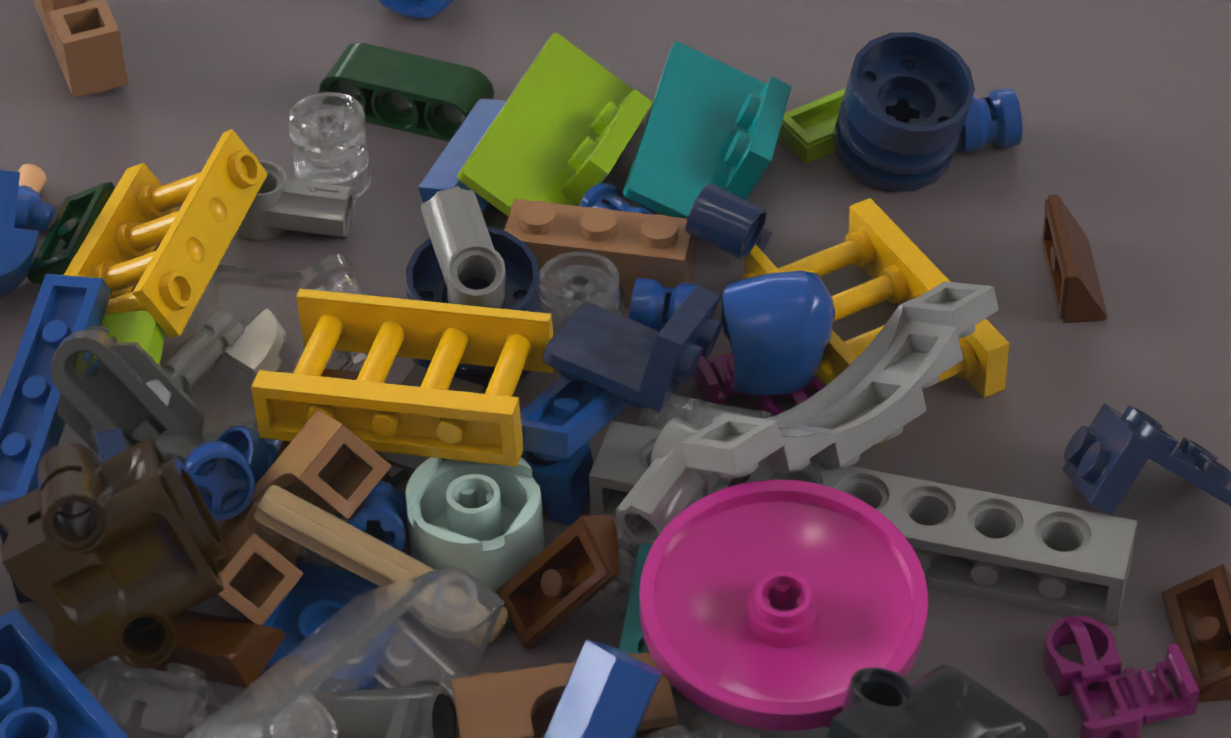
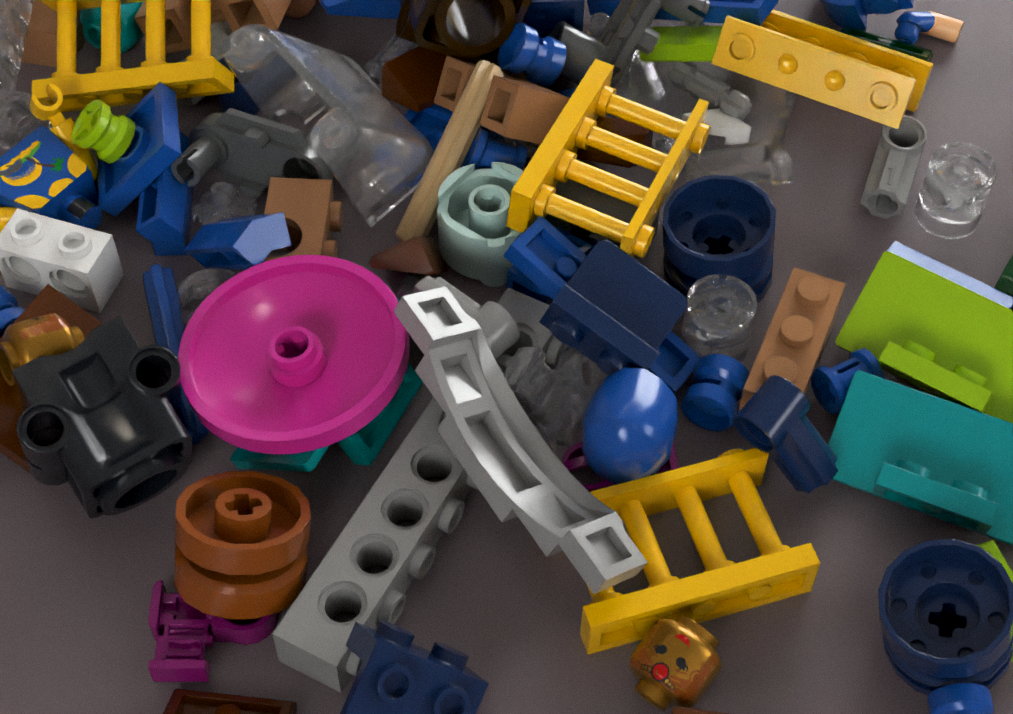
camera: 100 degrees right, 10 degrees up
(464, 248) = (713, 211): light grey piece -> none
(1019, 298) = (675, 663): none -> pearl gold head
(1032, 625) = (241, 544): none -> dark orange wheel

